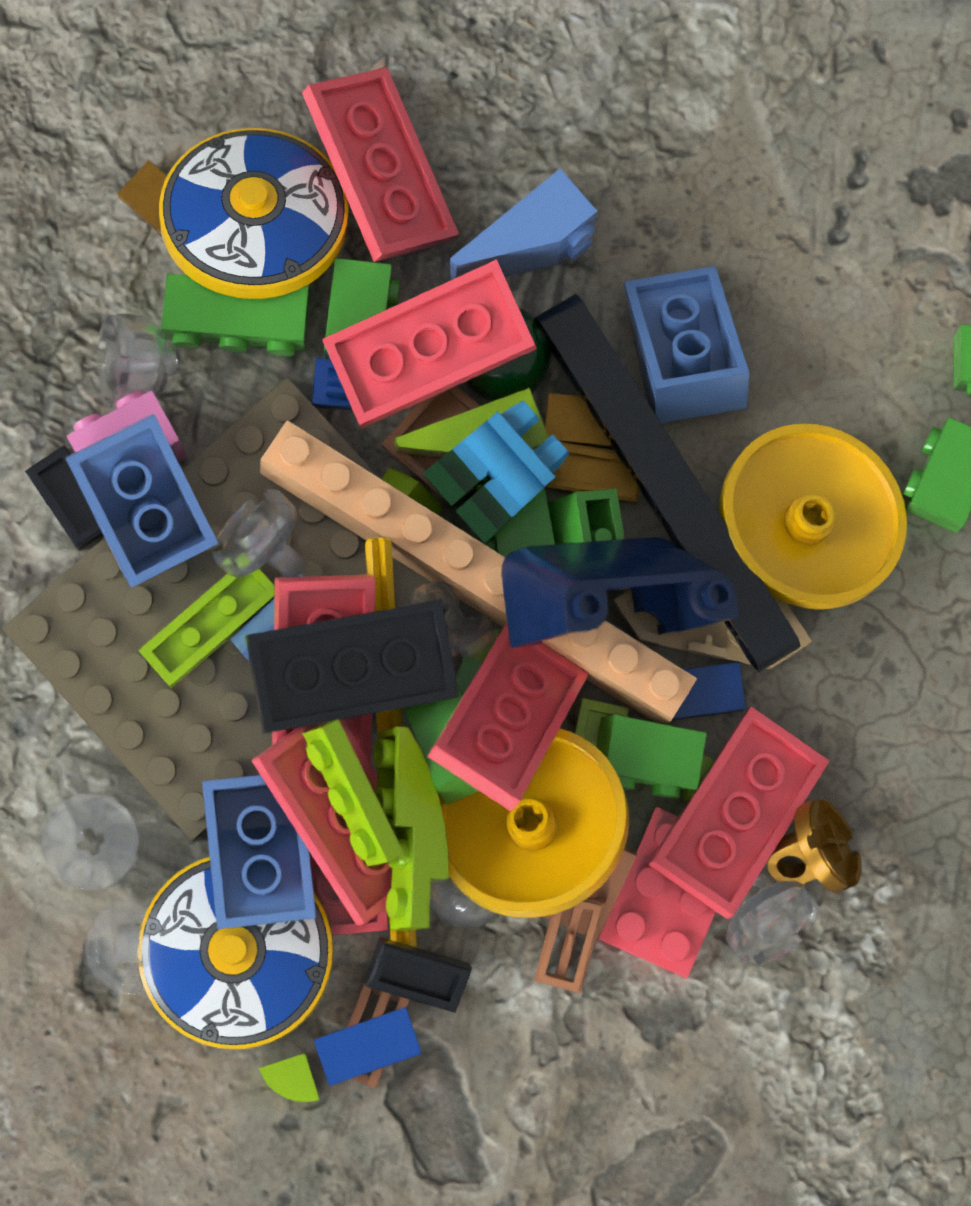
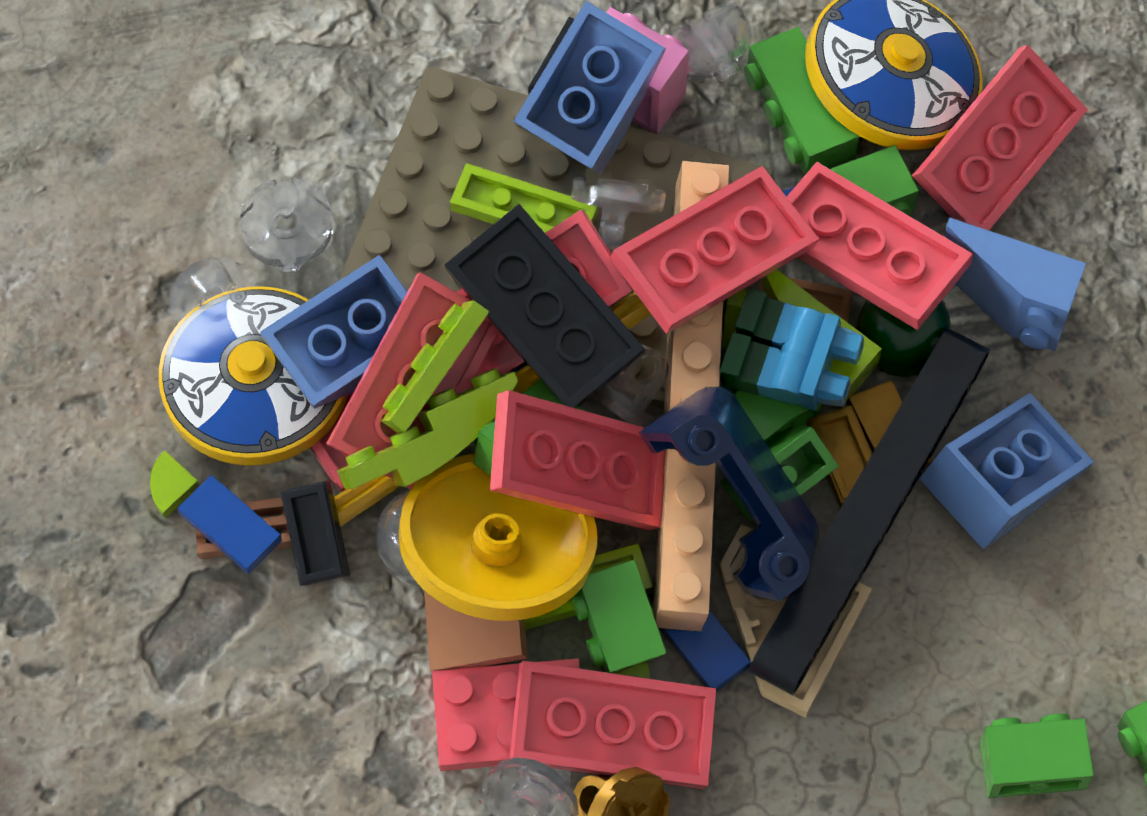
camera: 65 degrees right, 15 degrees down
(374, 483) = (713, 249): none -> coral plate
(559, 980) = (421, 662): nougat tile -> none
(814, 515) = (920, 650): yellow dish -> none

